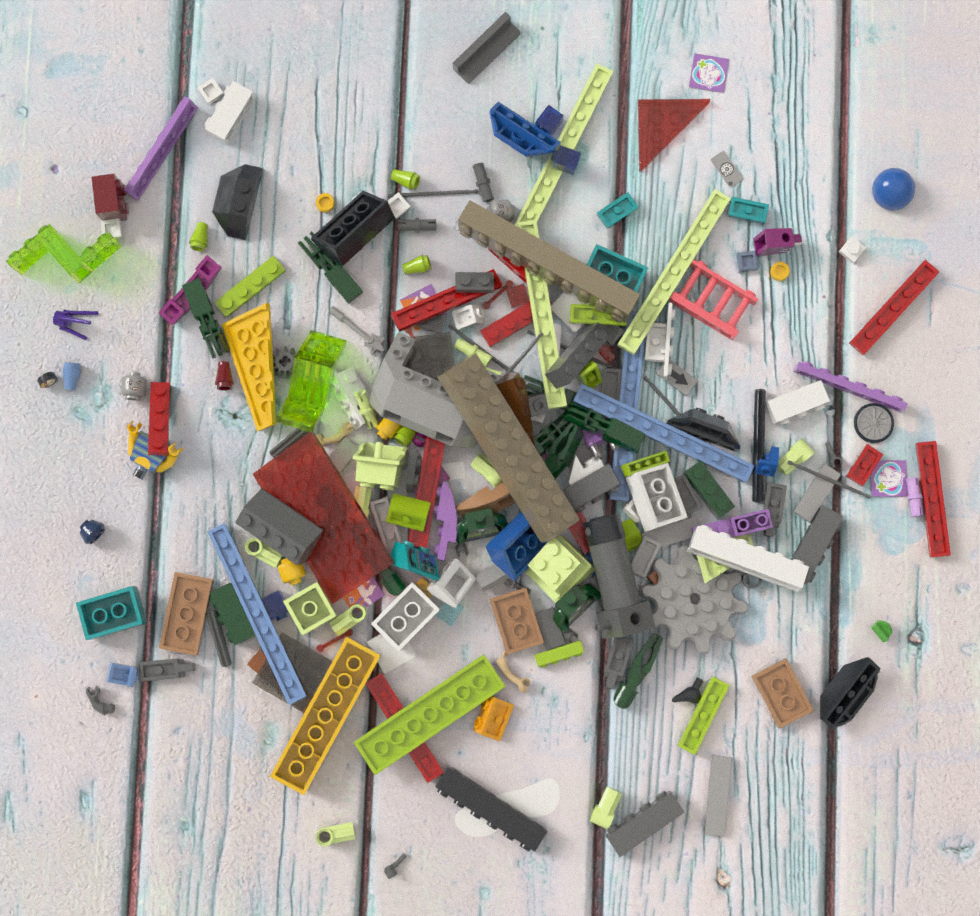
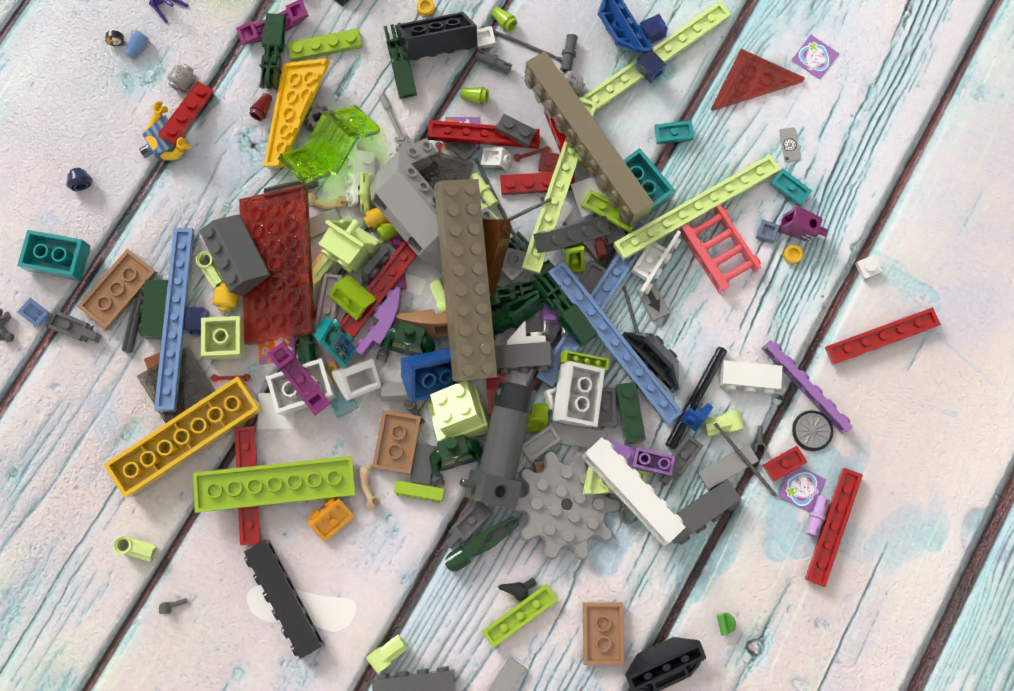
camera: 30 degrees right, 5 degrees down
(347, 619) = (250, 364): yellowish green piece -> none
(405, 610) = (299, 378): none -> magenta slope
(893, 189) = (933, 232): blue piece -> none

